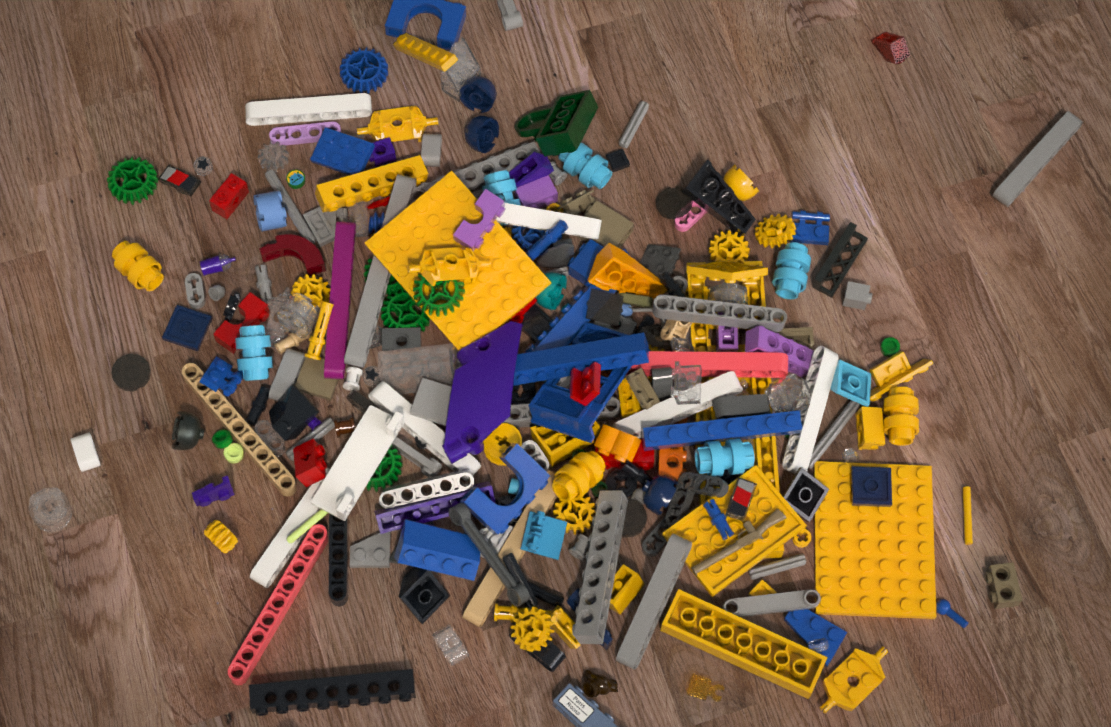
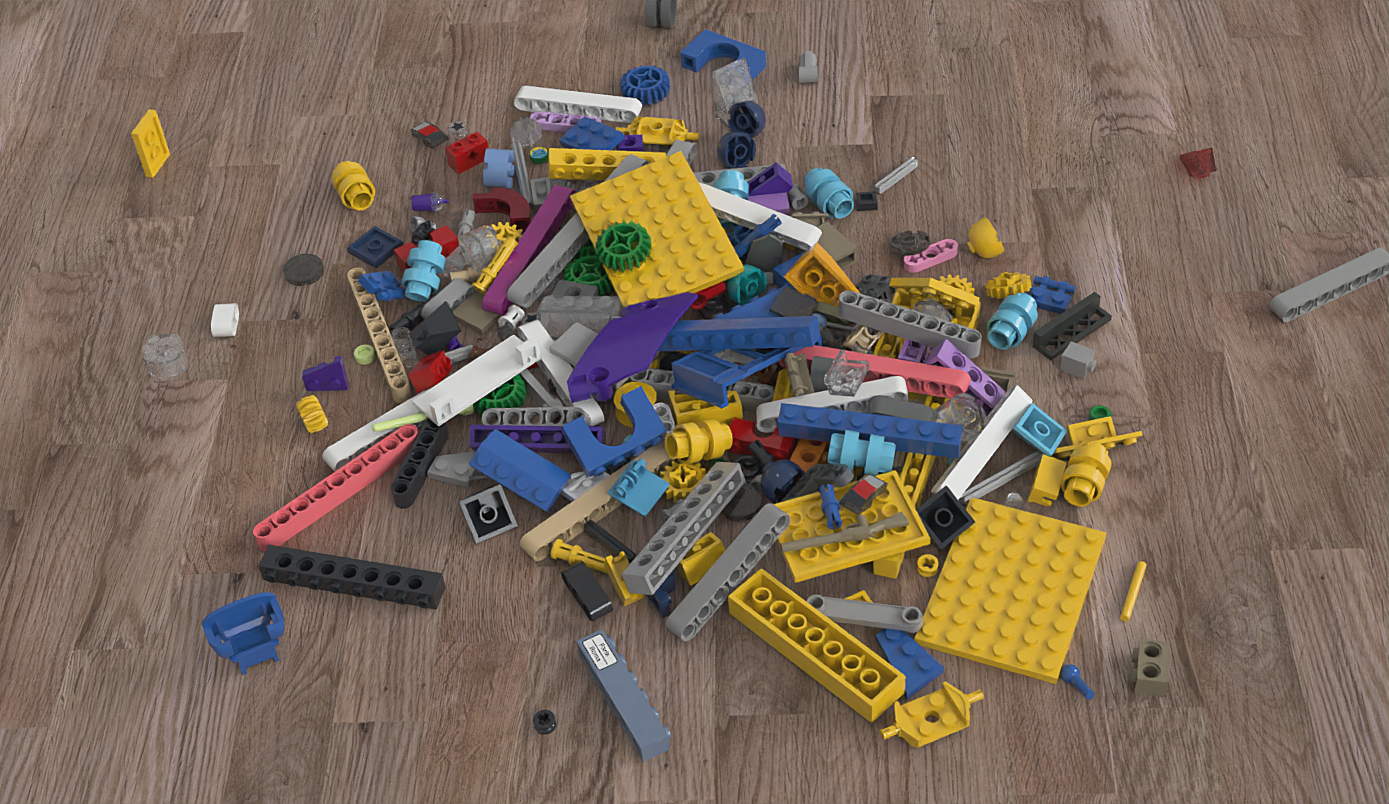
camera: 25 degrees right, 20 degrees down
(131, 173) = (385, 125): green gear -> none
(186, 431) = (327, 322): pearl dark grey cylinder -> none
(199, 290) = (394, 219): light grey beam -> none
(222, 439) = (359, 338): green tile -> none
(425, 52) = (705, 67): yellow plate -> none
(436, 268) = (641, 220): yellow plate -> none
(450, 645) = (494, 567): clear beam -> none
(472, 234) = (677, 203): medium lavender arch -> none
(516, 592) = (584, 530): dark grey piece -> none
(519, 577) = (594, 523): black axle -> none
(541, 629) = (583, 564): yellow gear -> none
(562, 126) = (820, 151): dark green brick -> none
(585, 384) = (733, 349): red bracket -> none
(598, 684) = (636, 644): dark brown animal -> none
(617, 443) = (751, 419): light orange brick -> none
(701, 687) = (752, 679): clear yellow plate -> none
(718, 199) = (954, 242): black wedge -> none
(777, 566) = (888, 585): light grey axle -> none
(818, 645) = (903, 665): clear tile -> none
(871, 486) = (1026, 531): dark blue tile -> none

